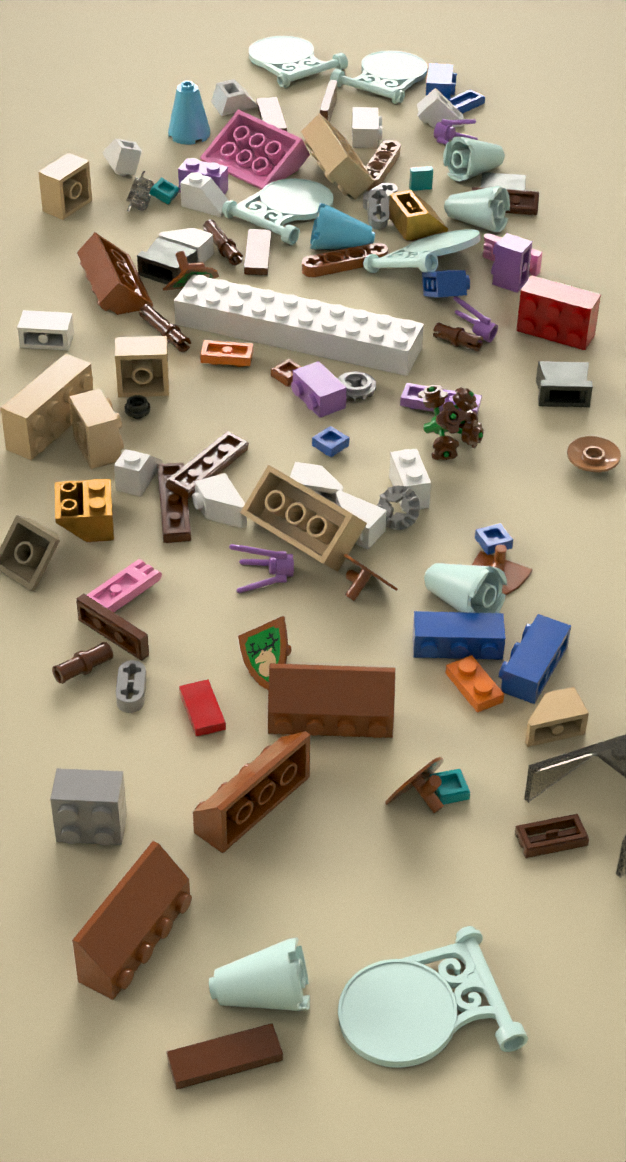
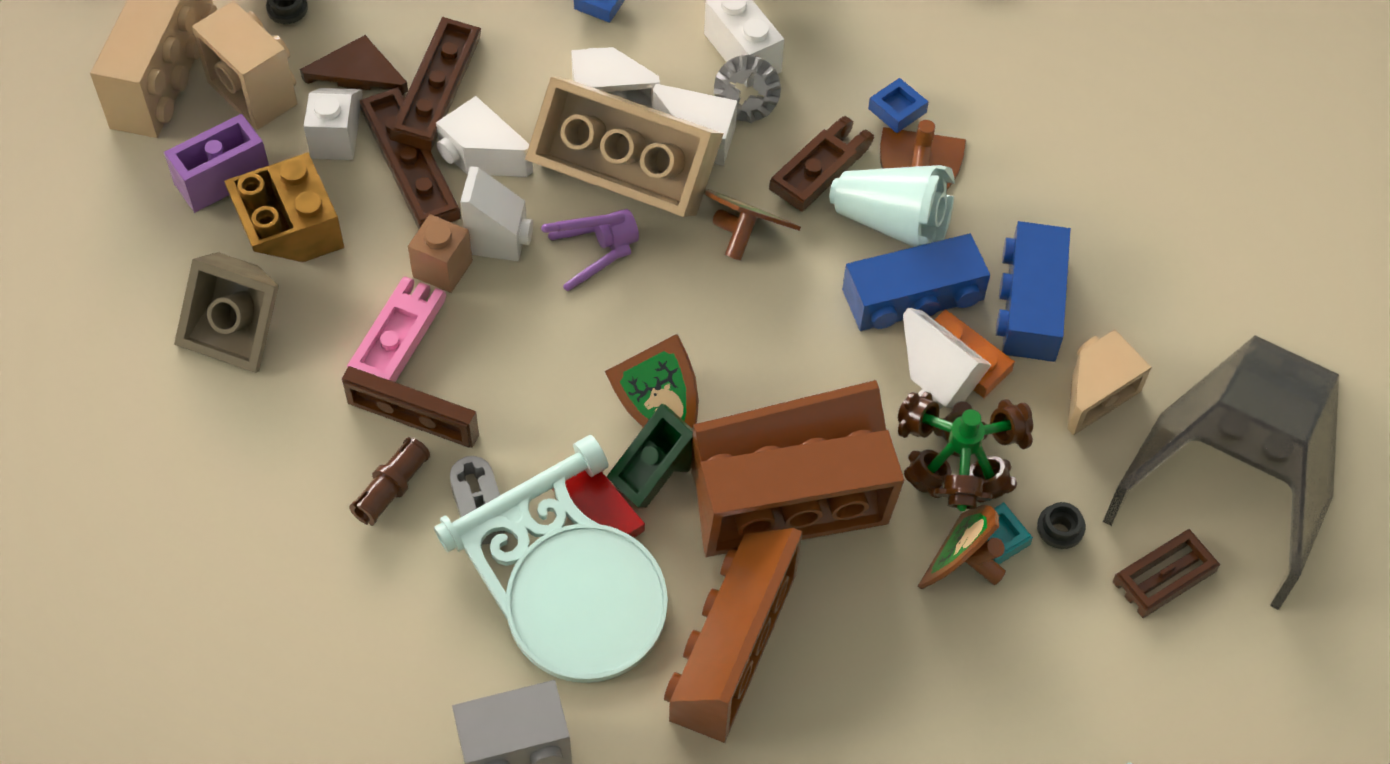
camera: 20 degrees left, 15 degrees up
(54, 468) = (214, 156): none -> medium lavender brick
(163, 447) = (357, 67): none -> reddish brown tile
(167, 551) = (440, 253): none -> medium nougat brick
(168, 750) = (580, 596): none -> light aqua piece
(205, 538) = (494, 217): none -> white slope
(244, 686) = (653, 456): none -> dark green slope
(339, 721) = (807, 487): none -> dark orange slope
(415, 563) = (819, 164): none -> reddish brown hinge
(447, 723) = (964, 433): none -> reddish brown plant
(451, 679) = (940, 360): none -> white slope
(492, 790) = (1063, 514): none -> pearl dark grey plate

